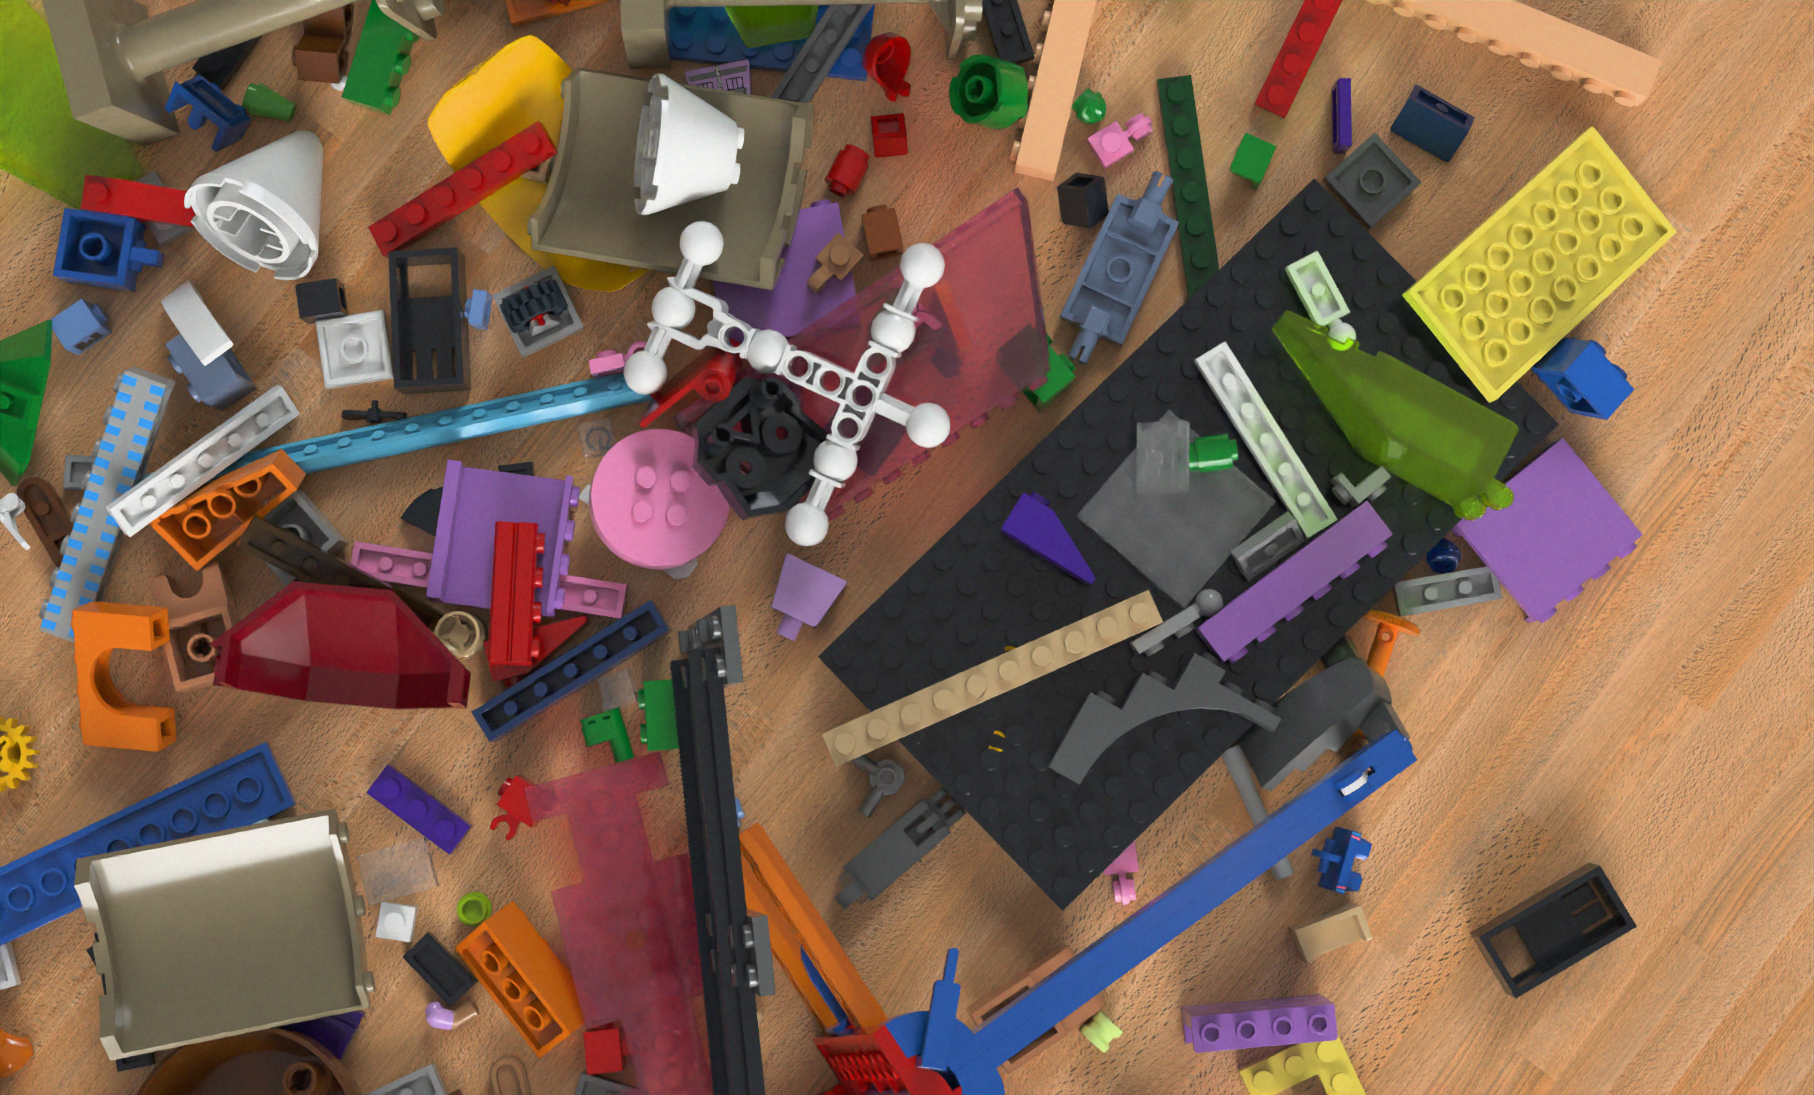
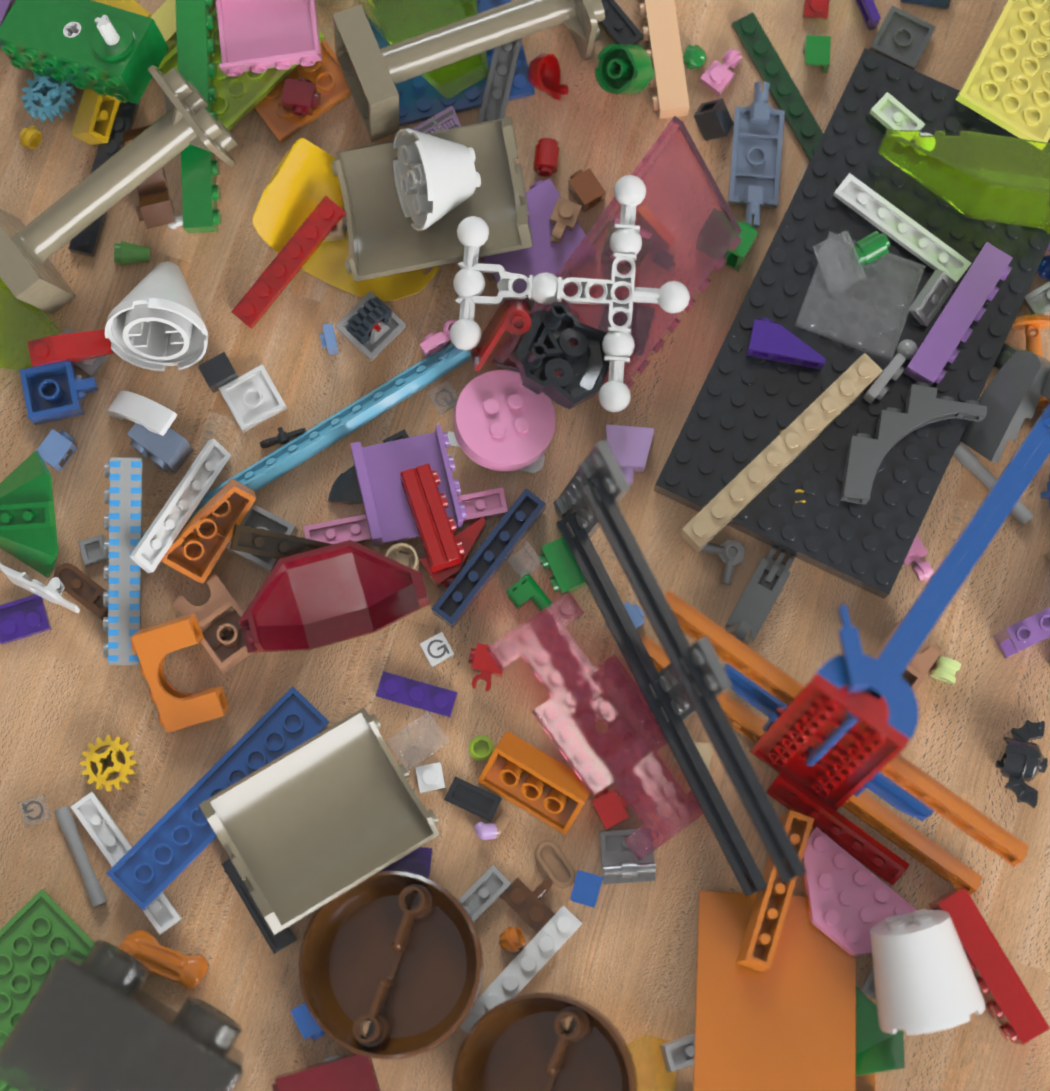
camera: 20 degrees left, 5 degrees down
(210, 104) = (91, 268): blue window -> none
(429, 325) = (300, 361): black piece -> none
(466, 761) = (437, 649): none -> white tile
(889, 135) = (565, 124): red slope -> none
(1368, 488) = (974, 243): light grey bracket -> none

